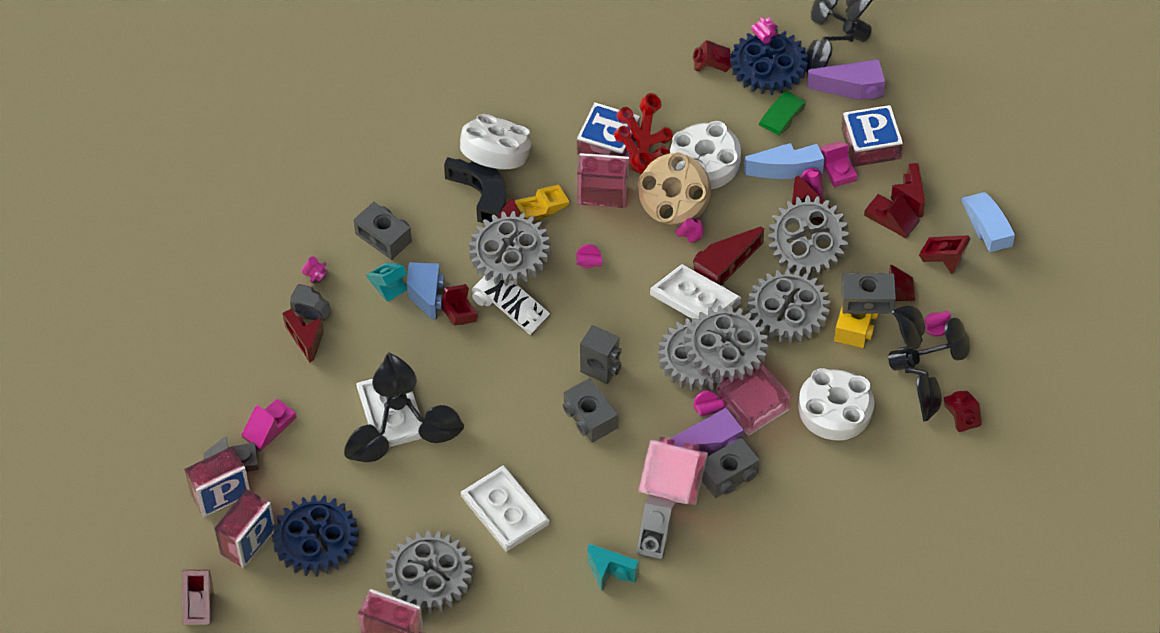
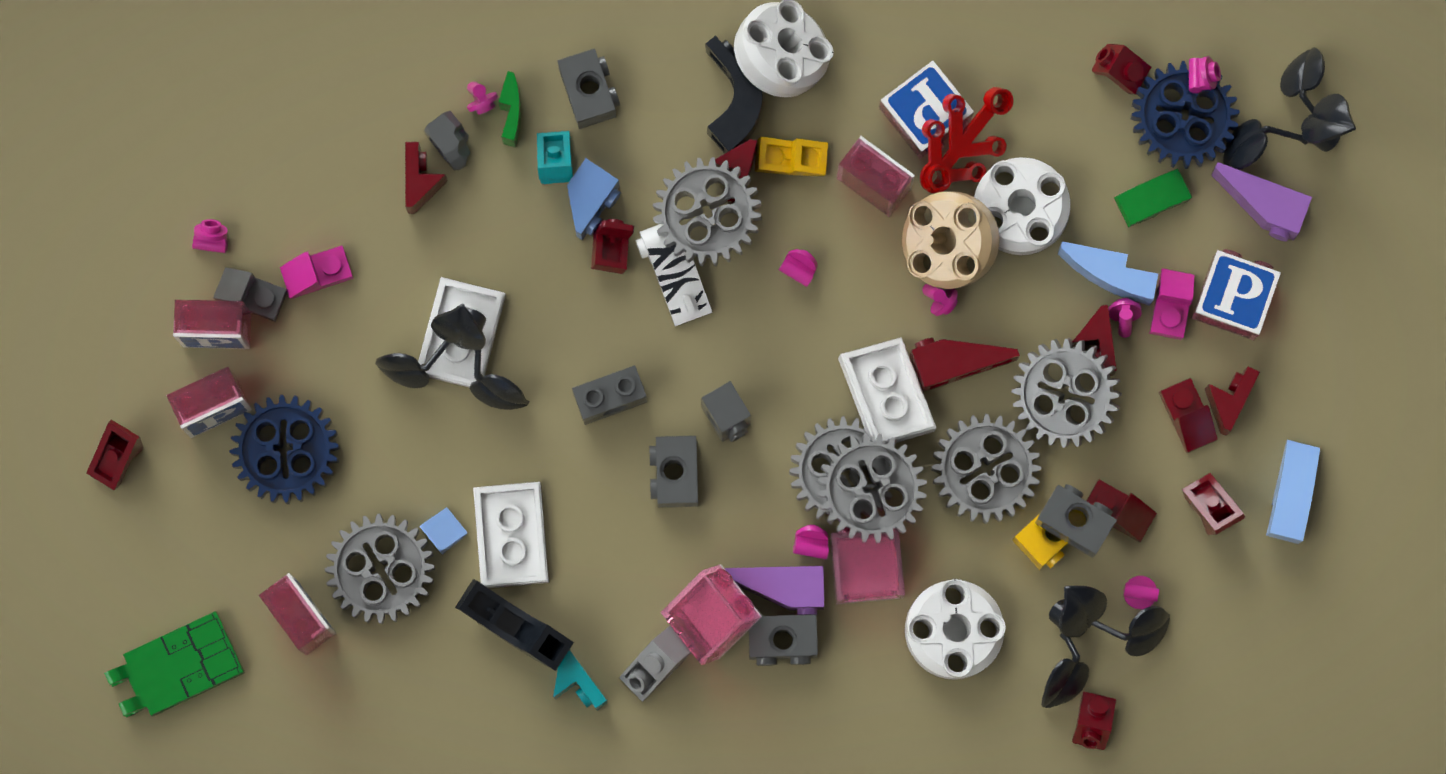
camera: 30 degrees right, 25 degrees up
(182, 440) = (210, 236): none -> dark pink plate
(340, 264) = (511, 102): none -> green slope
(458, 529) = (443, 530): none -> light blue slope
(516, 389) = (609, 395): none -> dark grey brick
(548, 556) = (514, 625): none -> black arch

